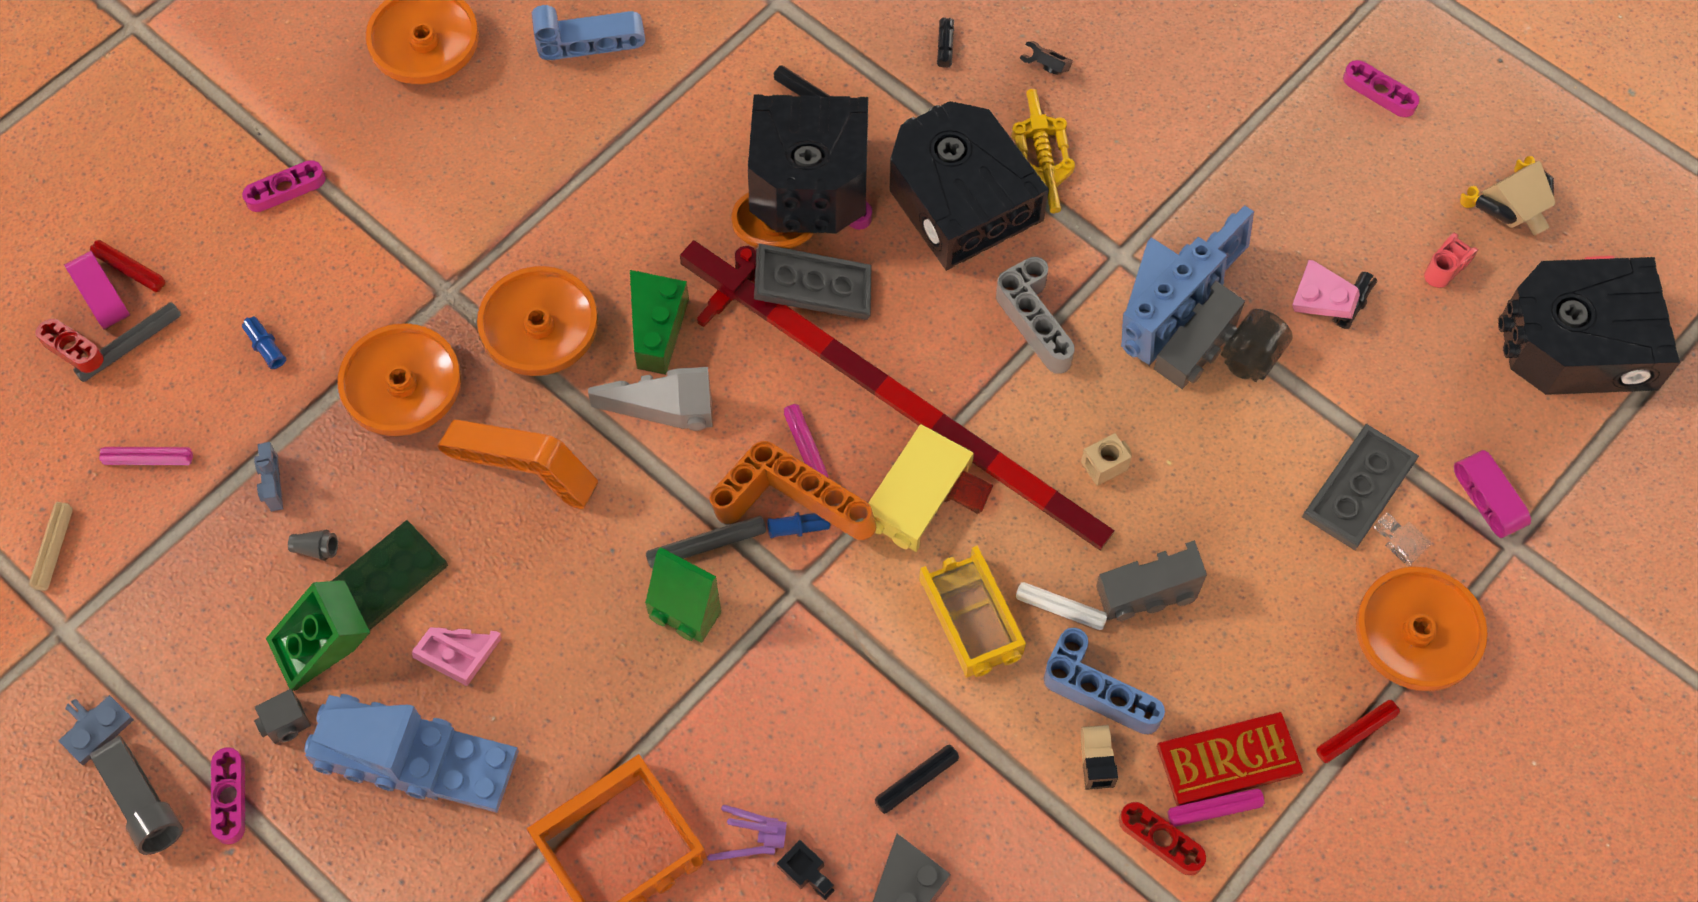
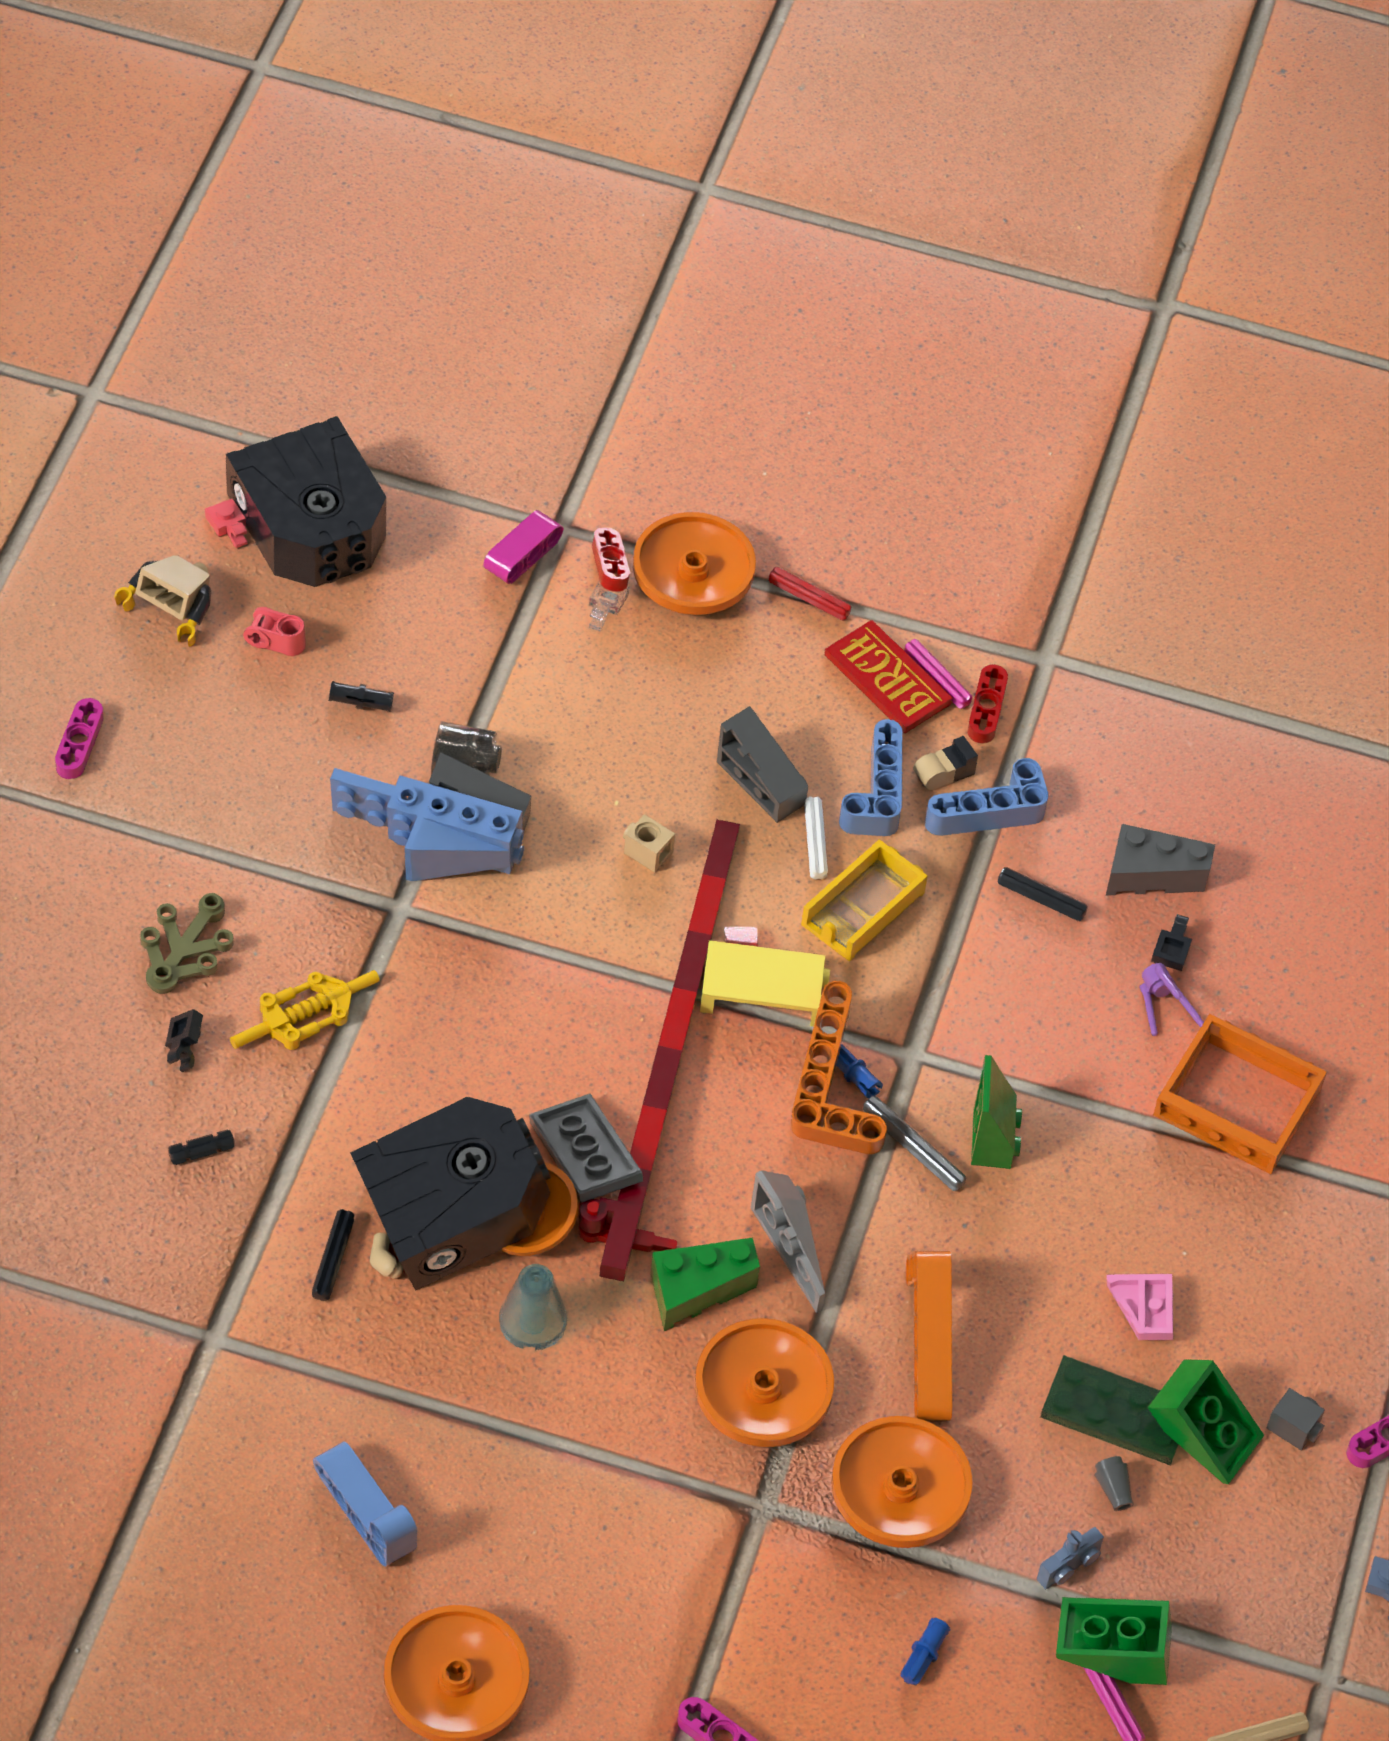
camera: 120 degrees left, 10 degrees down
(178, 469) = (1117, 1637): none -> green slope
(408, 753) = (1267, 1293): medium blue wedge -> none
(687, 193) = (533, 1310): none -> clear light blue cone
(804, 438) = (764, 1098): dark pink axle -> none
(963, 181) = (398, 1050): black piece -> none
(1035, 770) = (991, 808): none -> medium blue beam
(1054, 348) = (520, 945): light grey beam -> none
(1141, 90) = (185, 946): none -> olive plant
(1325, 293) = (368, 719): bright pink wing -> none
(1360, 486) = (564, 648): dark grey tile -> none
(1464, 556) = (607, 568): none -> beam

